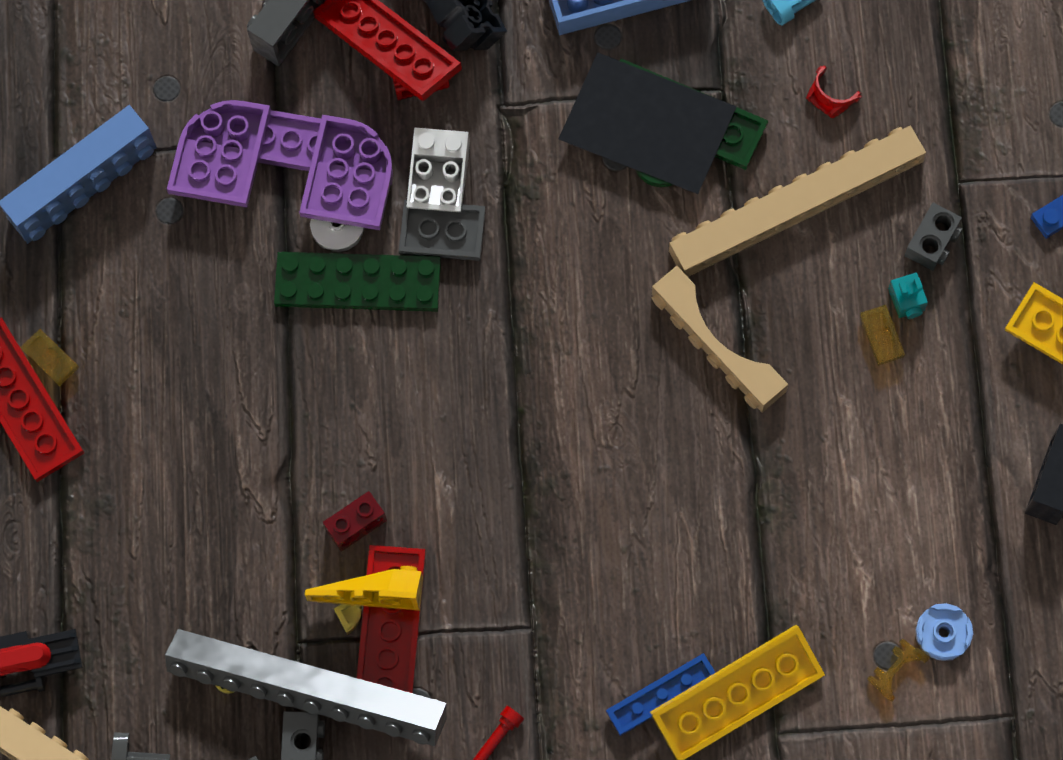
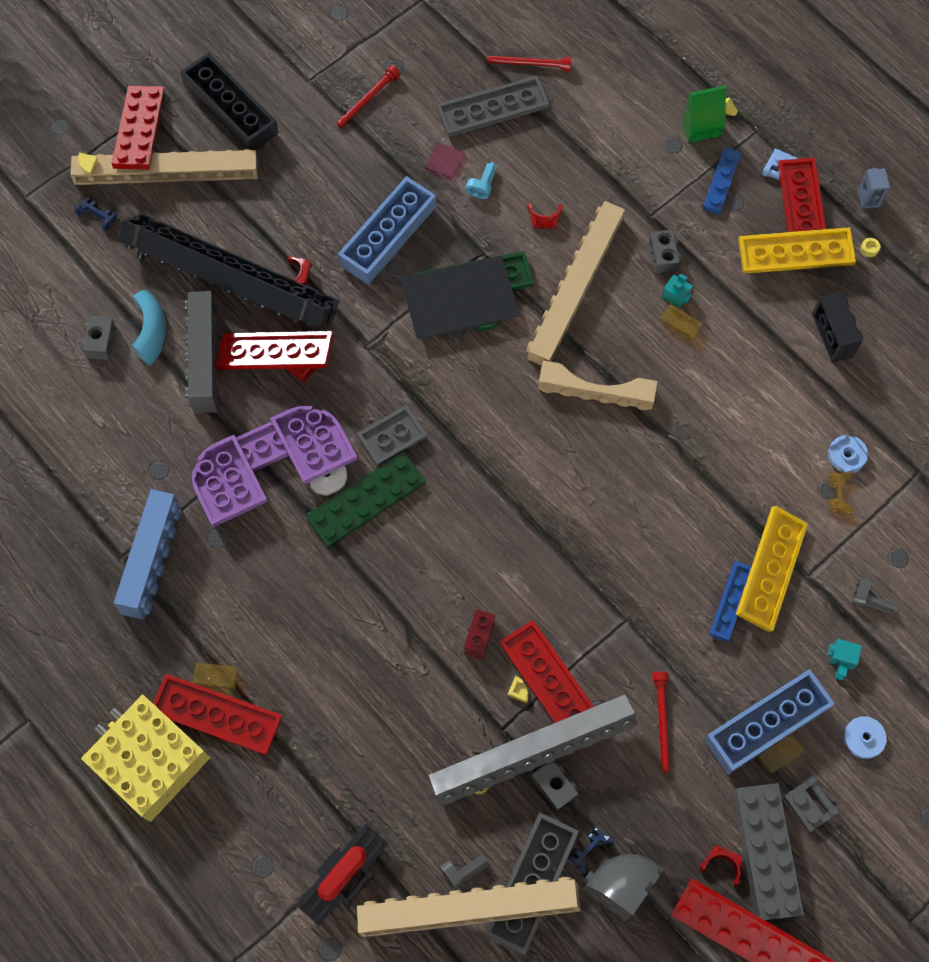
camera: 45 degrees left, 5 degrees down
(383, 589) = (537, 654): yellow wedge -> none
(438, 169) = (362, 402): white slope -> none

